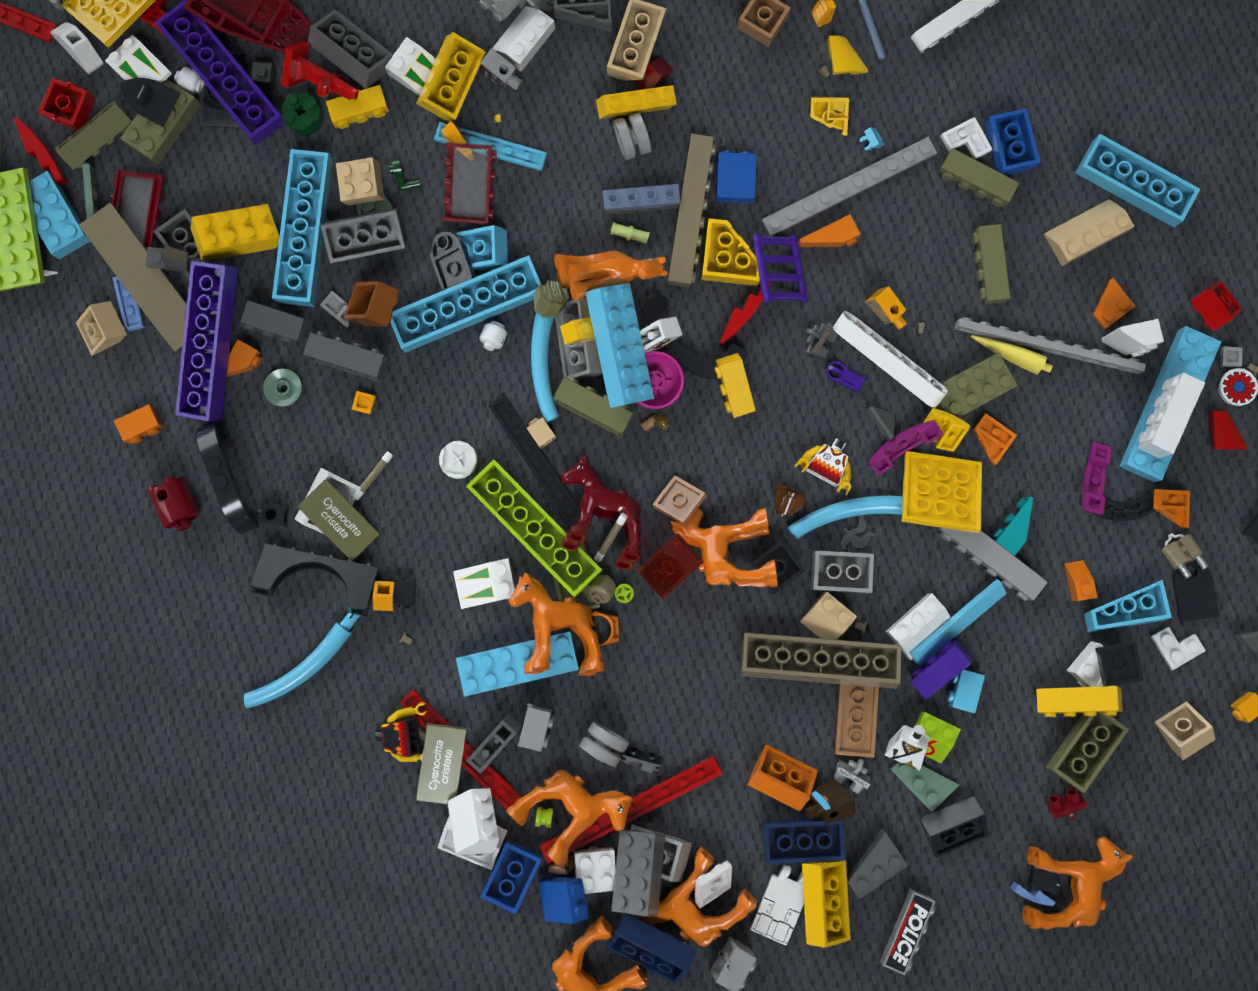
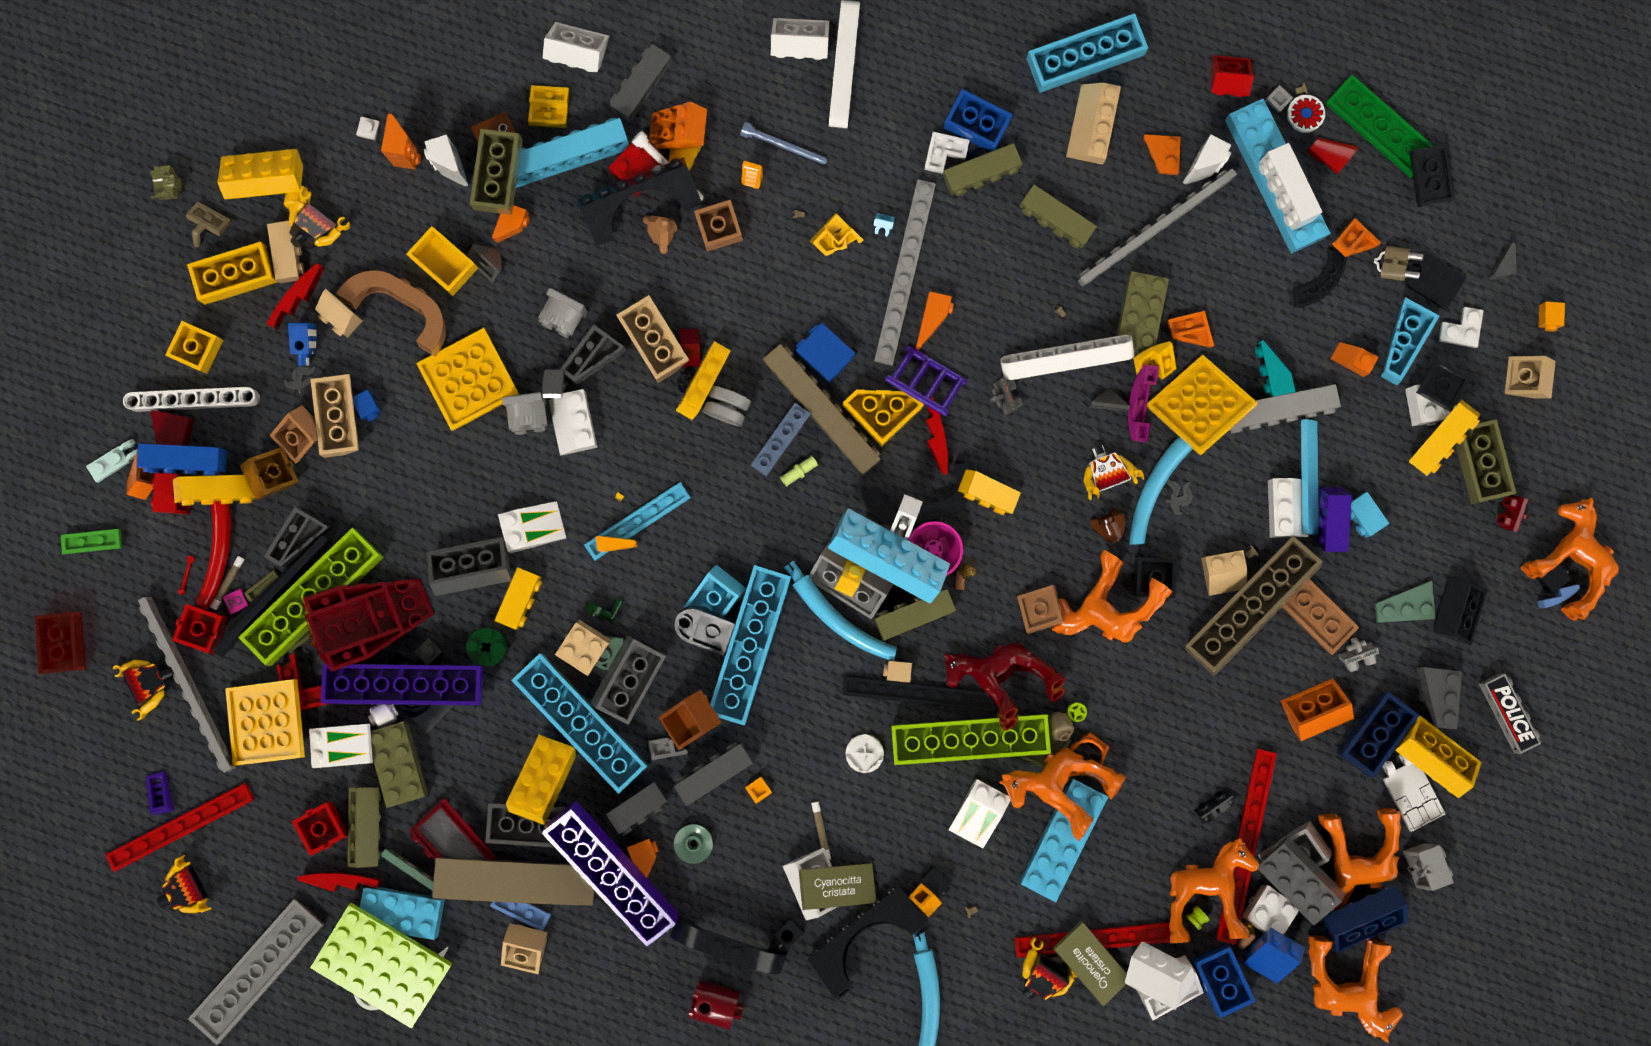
camera: 50 degrees left, 0 degrees up
(77, 46) = (278, 780): white slope -> none
(139, 424) = (627, 980): orange brick -> none
(150, 98) = (376, 758): black shield -> none
(167, 259) = (518, 850): dark grey slope -> none
(298, 69) = (452, 618): red piece -> none
(451, 77) = (559, 507): yellow brick -> none
(469, 182) = (657, 563): clear window -> none
(490, 69) = (578, 467): light grey torso -> none
(493, 335) = (791, 645): white head -> none
(494, 743) = (1110, 908): dark grey slope -> none
(535, 728) = (1125, 867): light grey brick -> none
(550, 299) = (802, 577): olive hair -> none
(603, 745) = (1181, 825): light grey wheel -> none
(607, 268) = (813, 508): orange animal -> none
(610, 538) = (1026, 686): dark tan bar -> none
(670, 566) = (1088, 659): clear red brick -> none
(713, 884) = (1355, 830): white plate -> none
(830, 802) = (1367, 689): dark brown torso -> none
(842, 571) = (1199, 532): light grey brick -> none
(844, 57) = (800, 189): yellow slope -> none
(848, 378) = (1053, 400): dark purple piece -> none
(881, 303) = (1021, 324): light orange torso -> none
(908, 746) = (1372, 594): white torso -> none
(941, 736) = (1380, 569): lime slope -> none
(1015, 354) = (1142, 257): light yellow piece -> none
(1094, 478) = (1286, 281): magenta slope -> none

